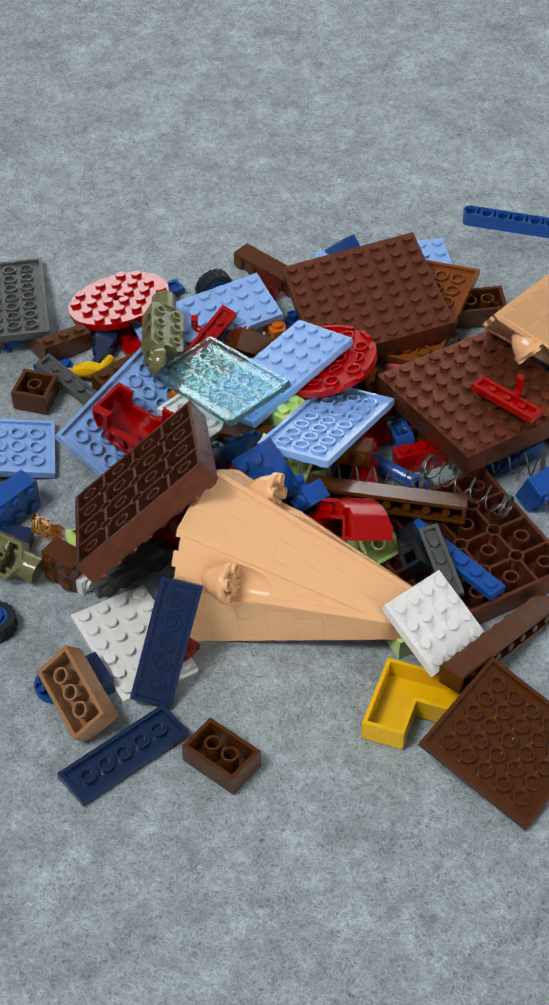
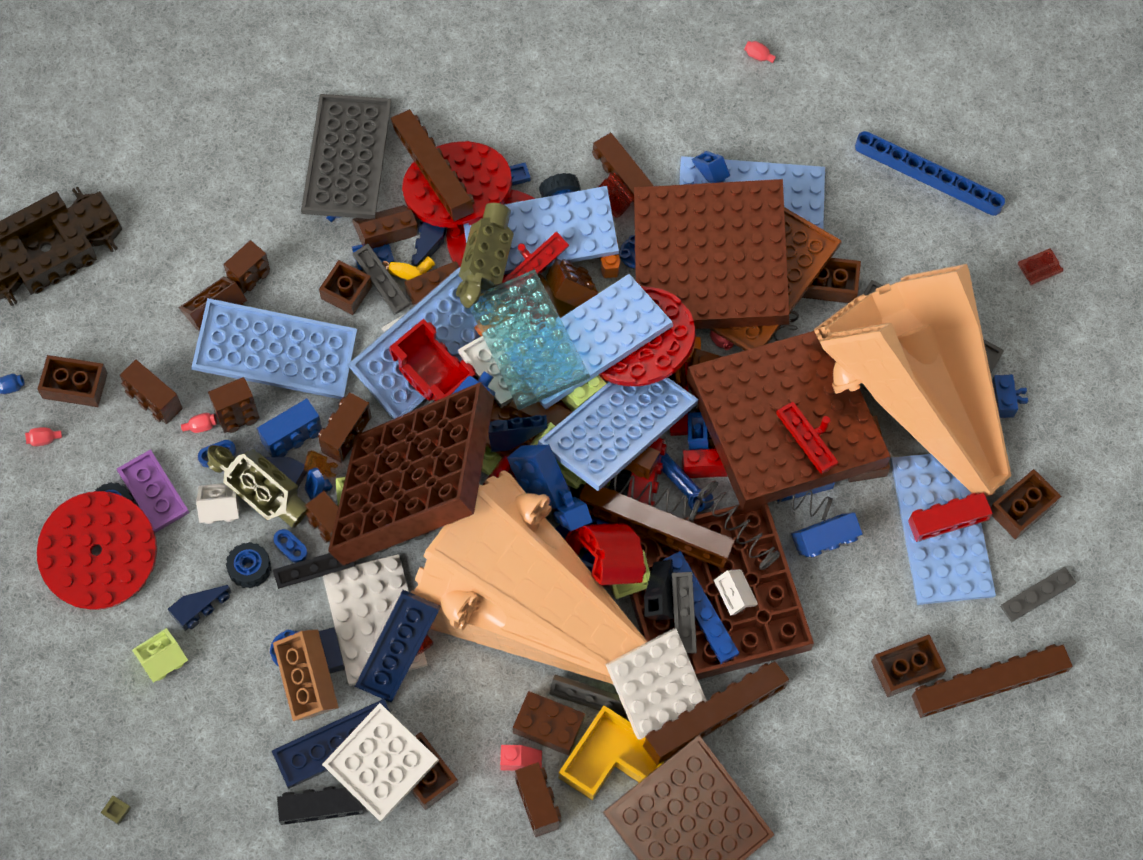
camera: 10 degrees right, 20 degrees up
(34, 599) = (291, 546): none -> blue plate
(44, 535) = (316, 483): none -> blue piece
(61, 490) = (343, 425): none -> reddish brown brick
(61, 608) = (308, 570): none -> black brick
(94, 288) = (432, 165): none -> reddish brown brick
(121, 810) = (317, 805): none -> black brick
(176, 750) = (380, 762): none -> white plate
(316, 726) = (519, 756): none -> coral slope
(336, 689) = (548, 723): none -> reddish brown brick
(347, 753) = (538, 799): none -> reddish brown brick
(356, 175) = (759, 51): none -> coral plant
(364, 659) = (586, 695): none -> dark grey plate
(481, 538) = (735, 591): none -> white panel

